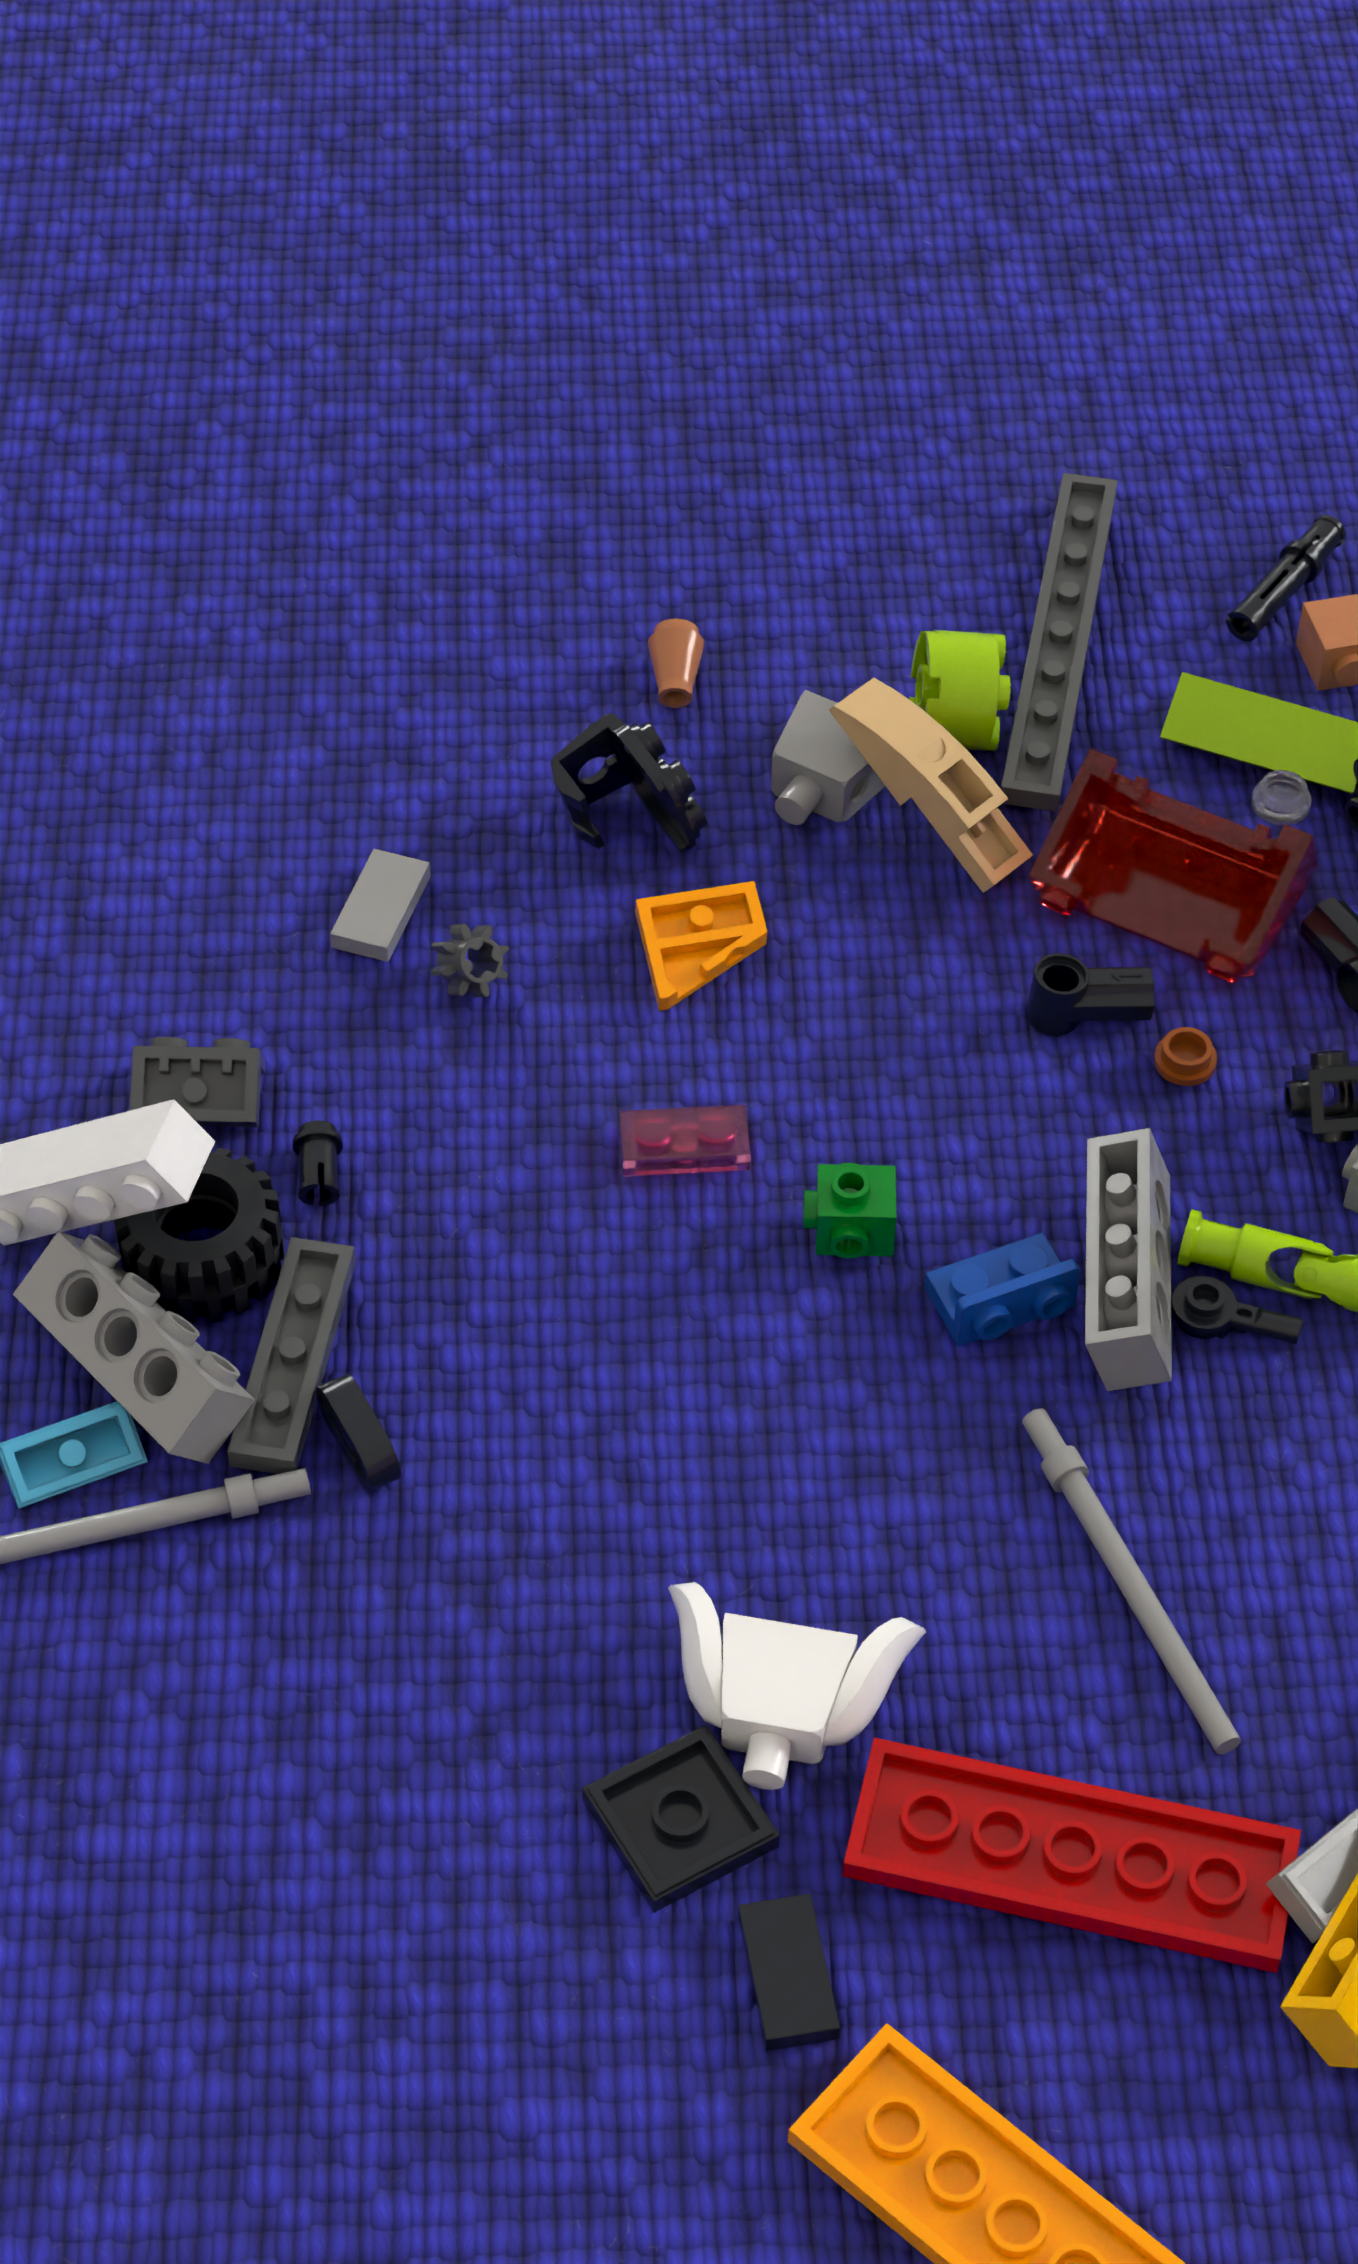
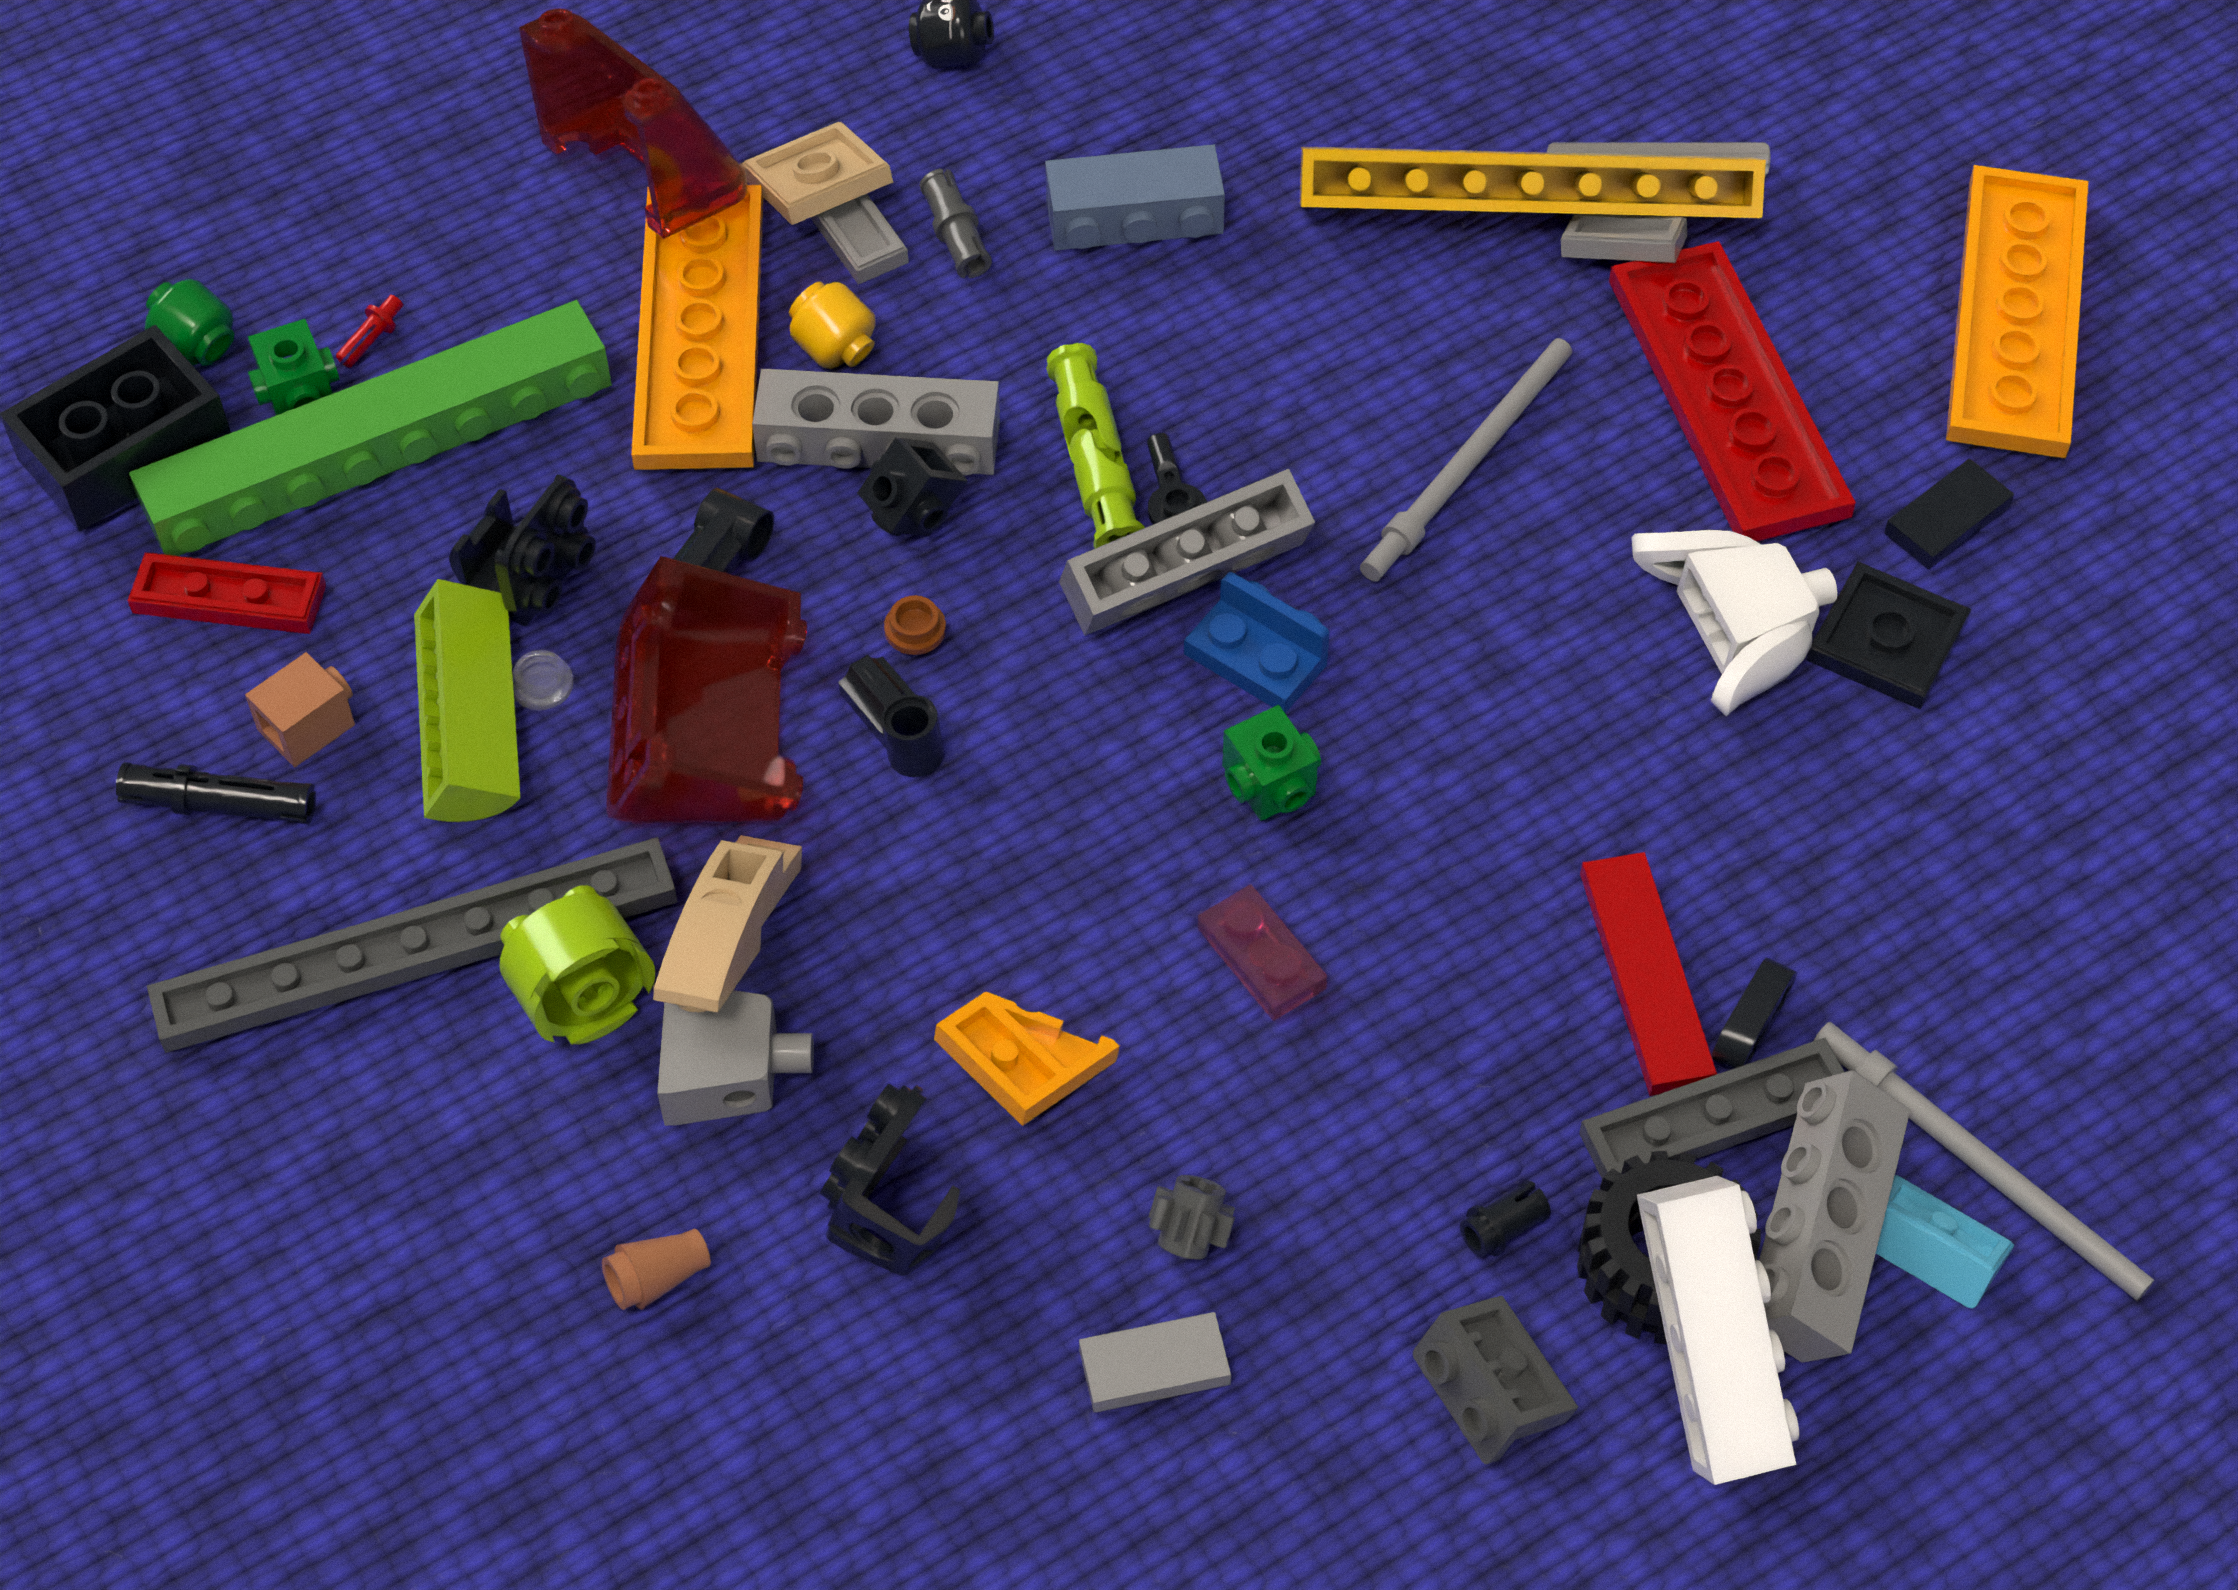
camera: 120 degrees left, 5 degrees up
(468, 1394) = (1647, 972): none -> red tile

